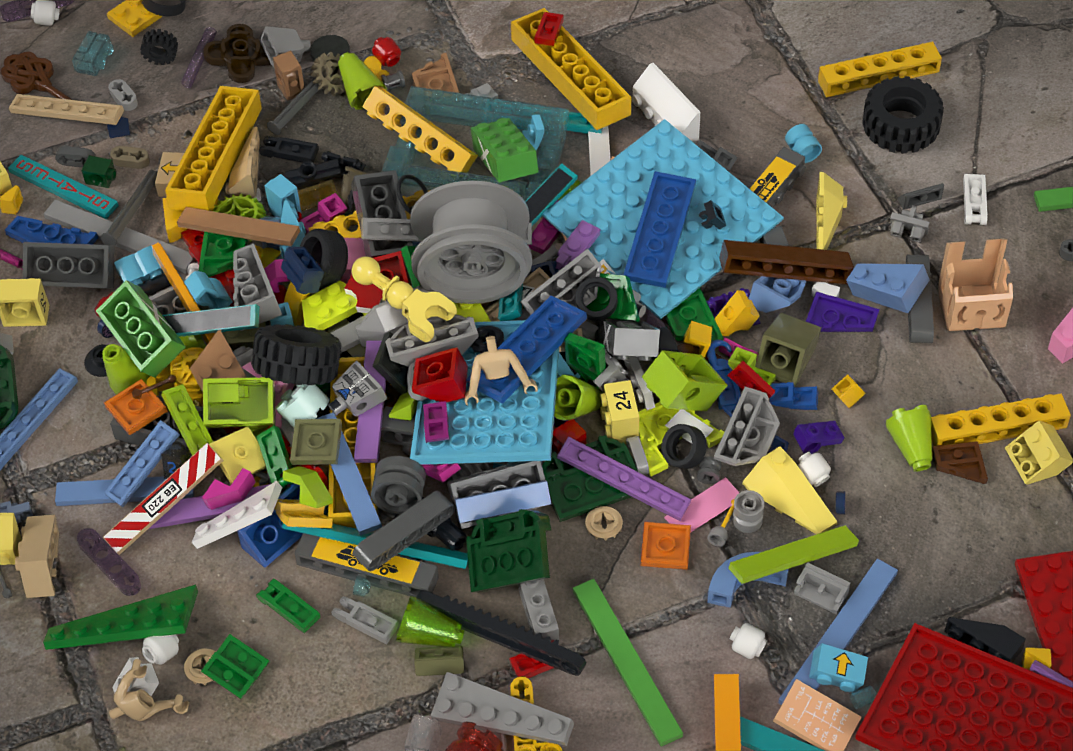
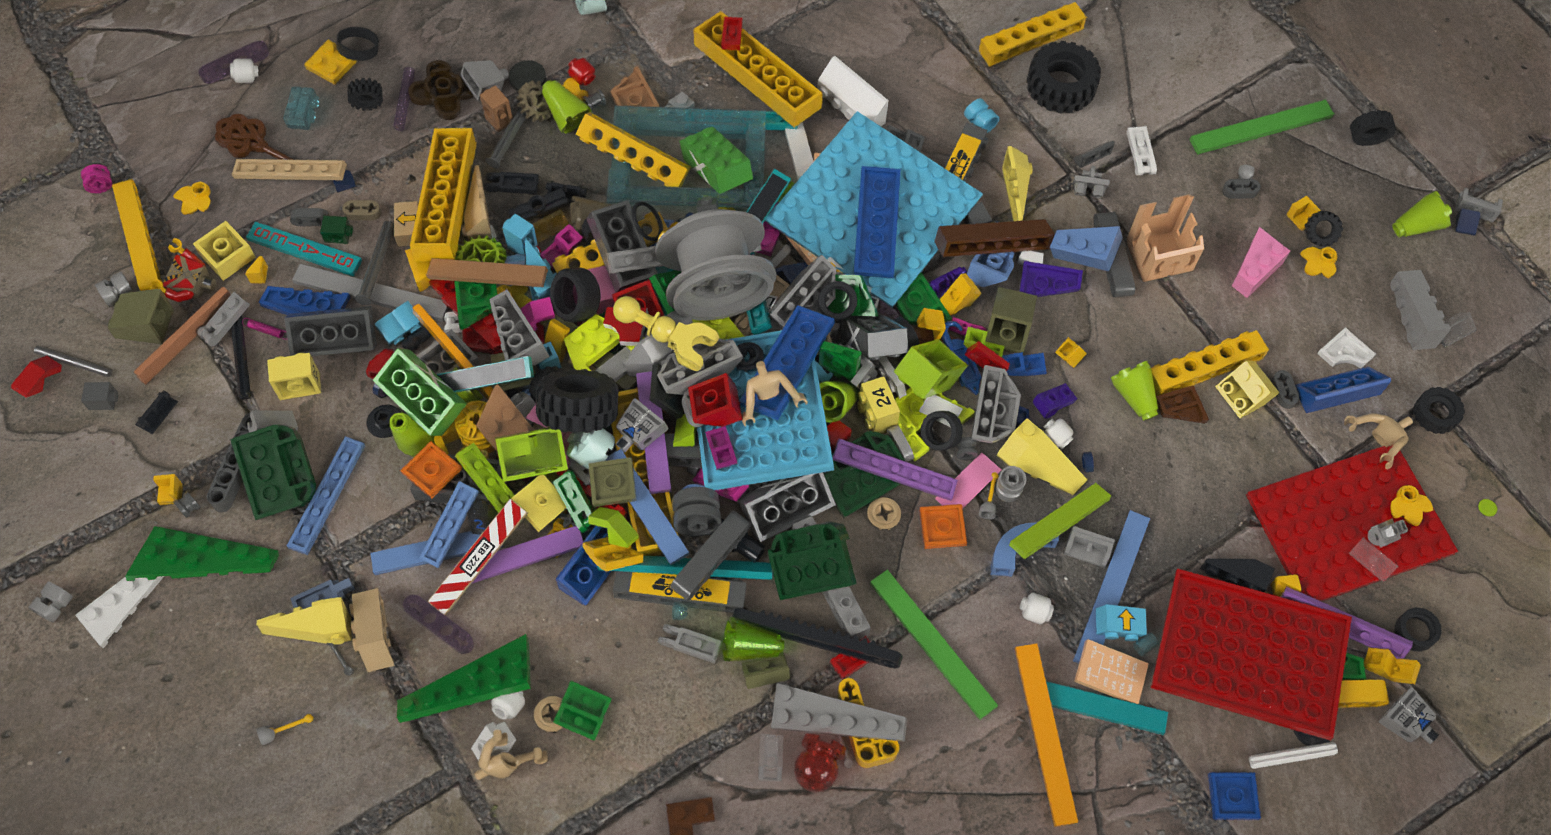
camera: 15 degrees left, 10 degrees up
(126, 92) = (342, 144): light grey beam -> none
(138, 393) = (431, 456): reddish brown hinge -> none
(207, 291) = (473, 342): medium azure brick -> none
(222, 494) = (532, 544): dark pink slope -> none
(243, 514) = (558, 561): white wing -> none
(289, 606) = (617, 641): green plate -> none
(302, 270) = (560, 311): dark blue brick -> none
(502, 501) = (794, 512): medium blue tile -> none
(535, 131) = (740, 137): medium azure slope -> none
(580, 240) = (804, 247): medium lavender hinge -> none
(713, 214) = (923, 201): black tile -> none

